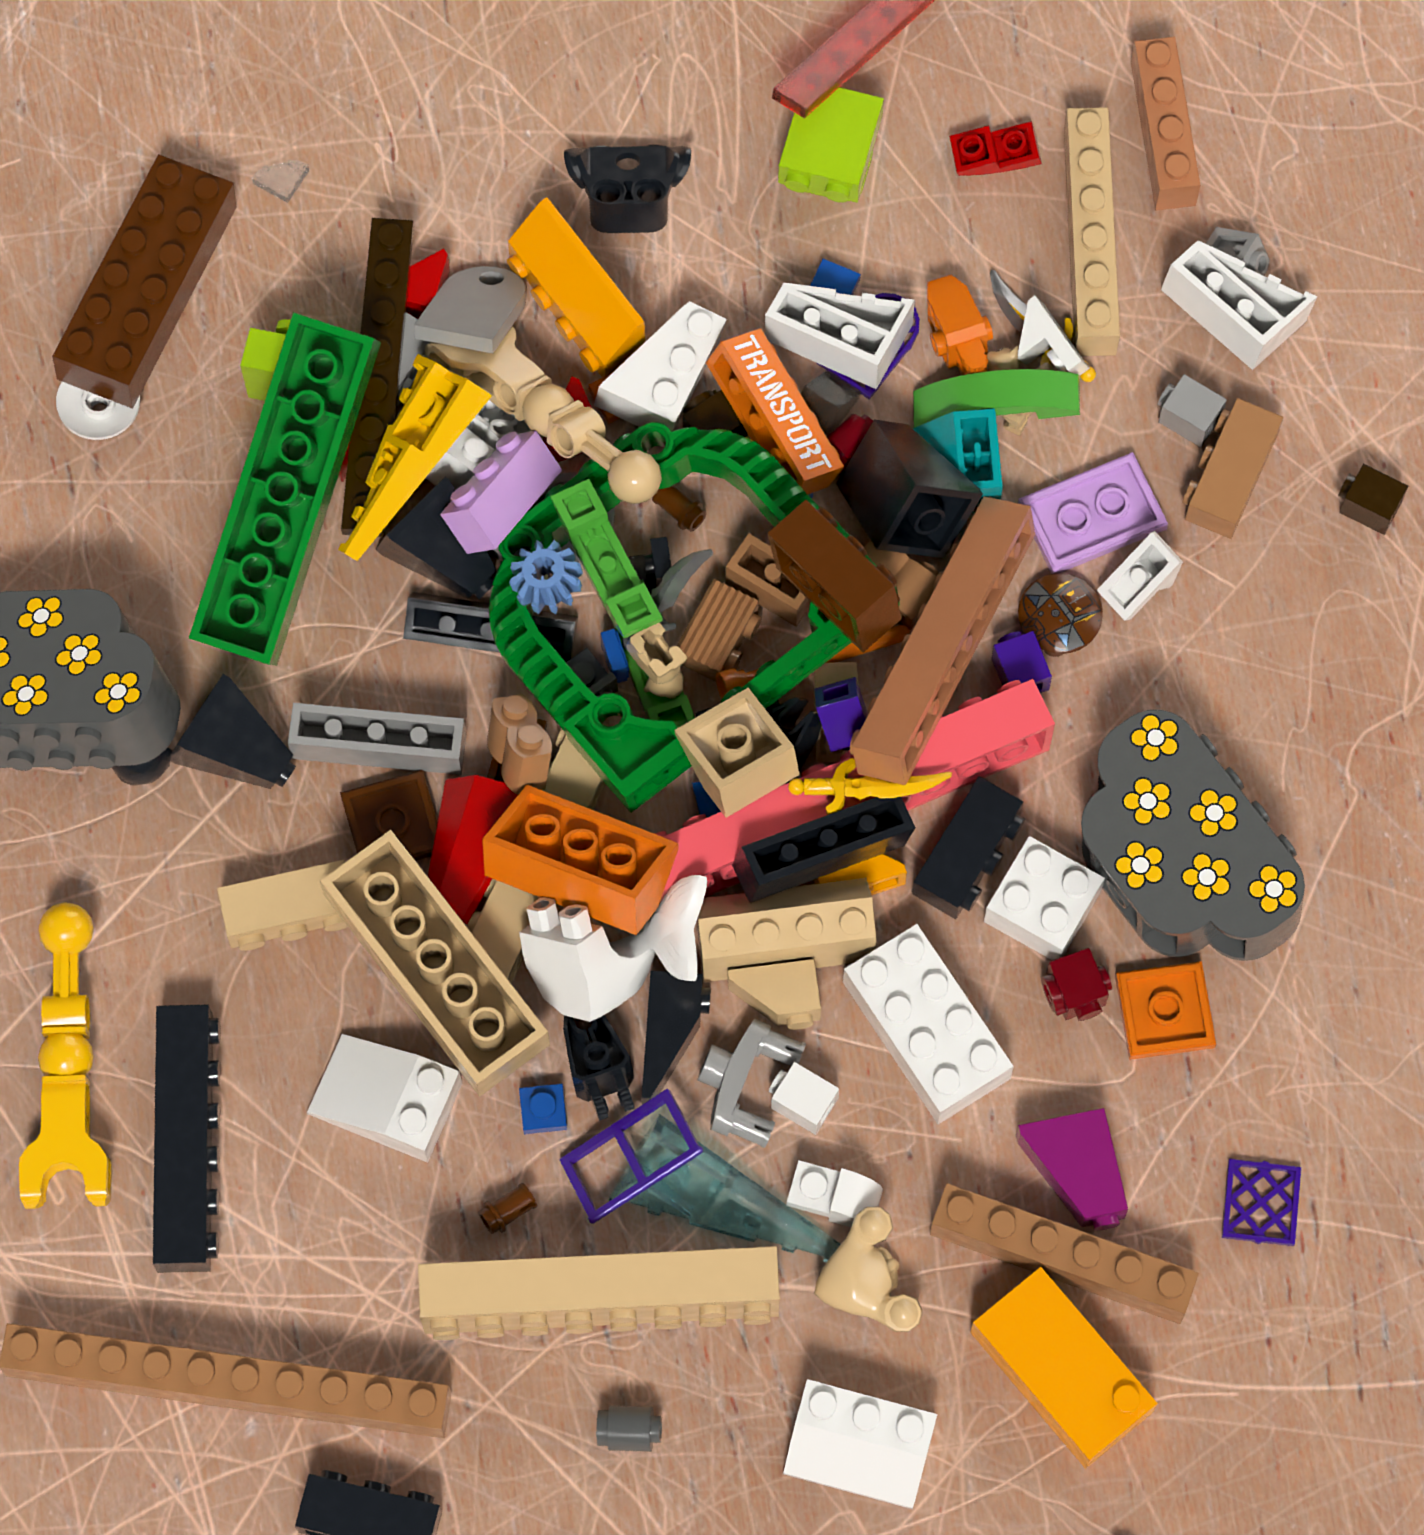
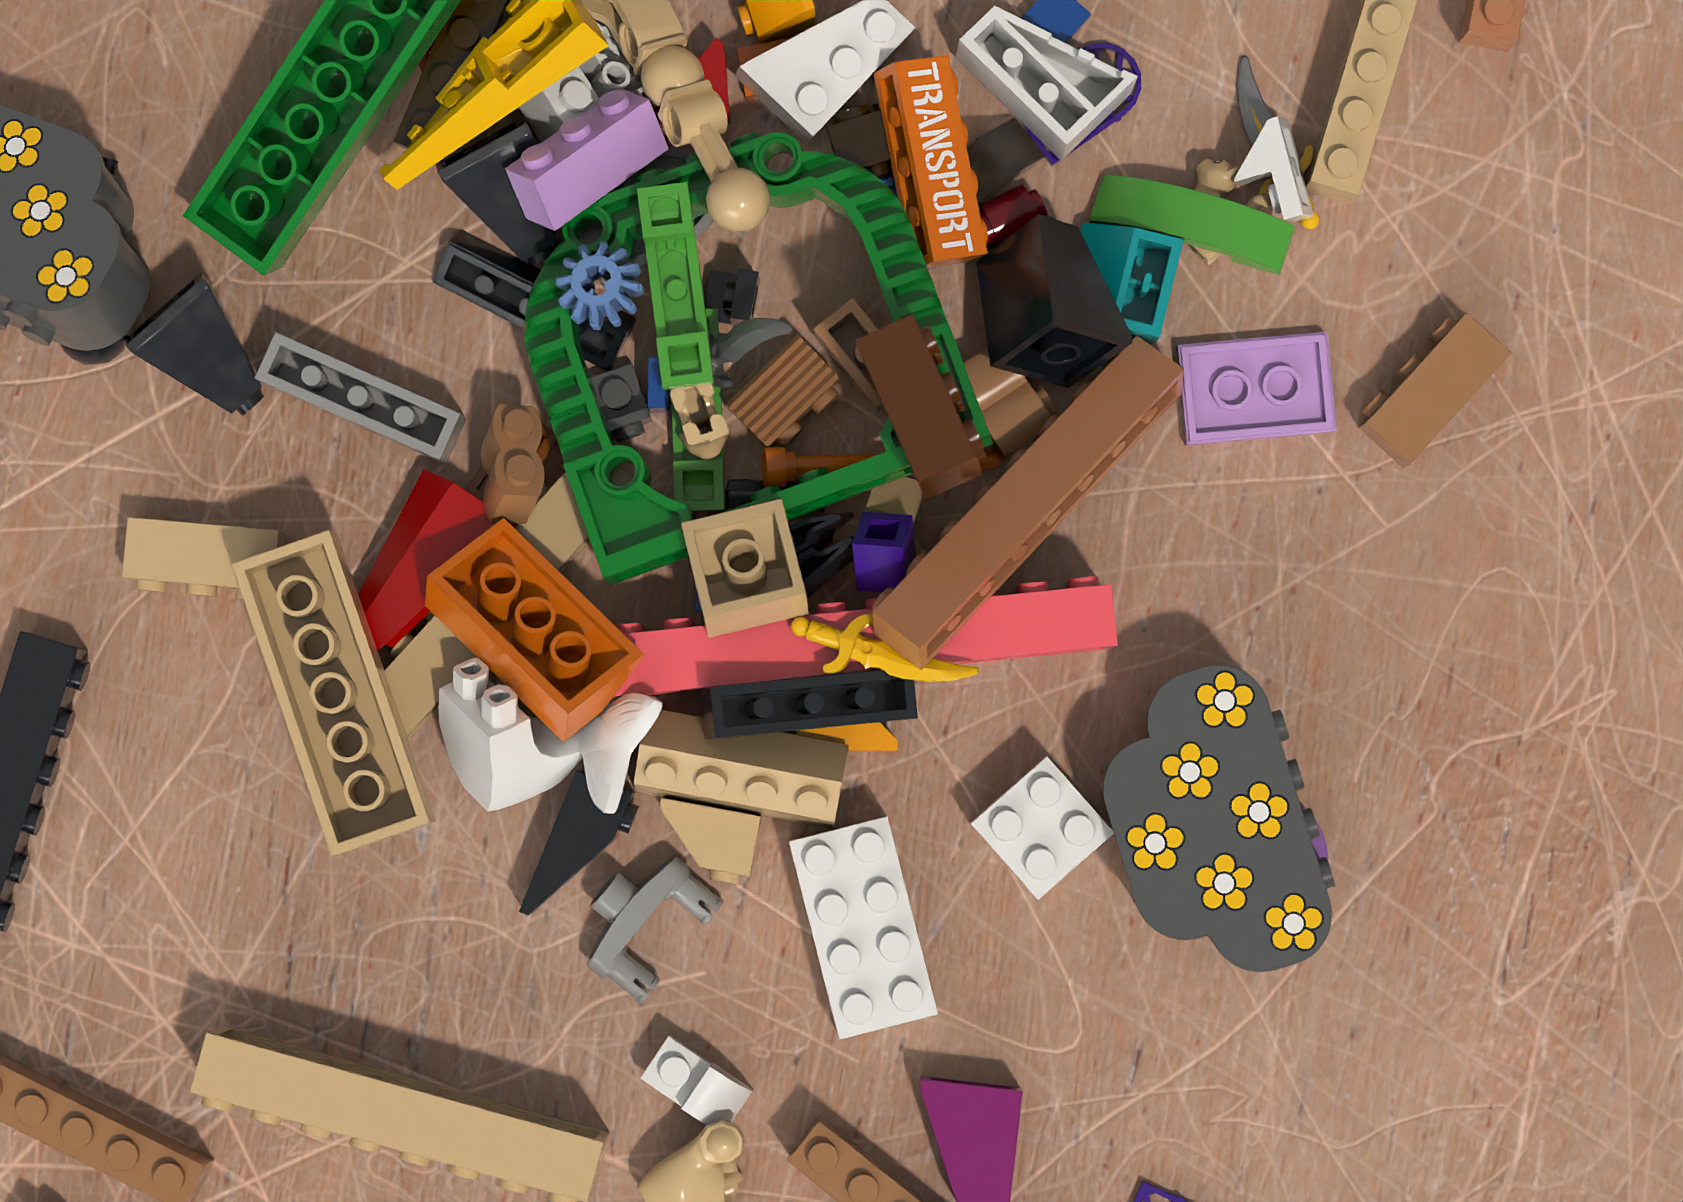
camera: 20 degrees right, 15 degrees up
(386, 1095) = (242, 809): white slope -> none
(393, 805) = (352, 491): reddish brown tile -> none
(507, 1208) = (336, 979): reddish brown pin -> none
(543, 1109) = (413, 878): blue plate -> none
(598, 1065) = (484, 856): black hinge -> none
(617, 1130) = (483, 934): dark purple window -> none
(680, 507) = (793, 233): reddish brown pin -> none
(717, 1196) = (543, 1009): clear light blue wedge -> none
(803, 1097) = (699, 962): white brick -> none
(957, 326) = (1179, 118): orange hinge -> none
(969, 849) = (980, 740): black brick -> none
(1021, 659) = (1111, 544): dark purple brick -> none
(1061, 613) = (1177, 496): reddish brown dish -> none
(1076, 986) = (1043, 937): dark red brick -> none
(1140, 576) = (1280, 488): white slope -> none
(1165, 1010) = (1133, 992): orange tile -> none
(1190, 409) = (1410, 303): light grey brick -> none
(1236, 303) = (1507, 193): white wedge -> none
(1243, 246) = (1530, 132): light grey bracket -> none
(1372, 498) = (1579, 477): dark brown brick -> none

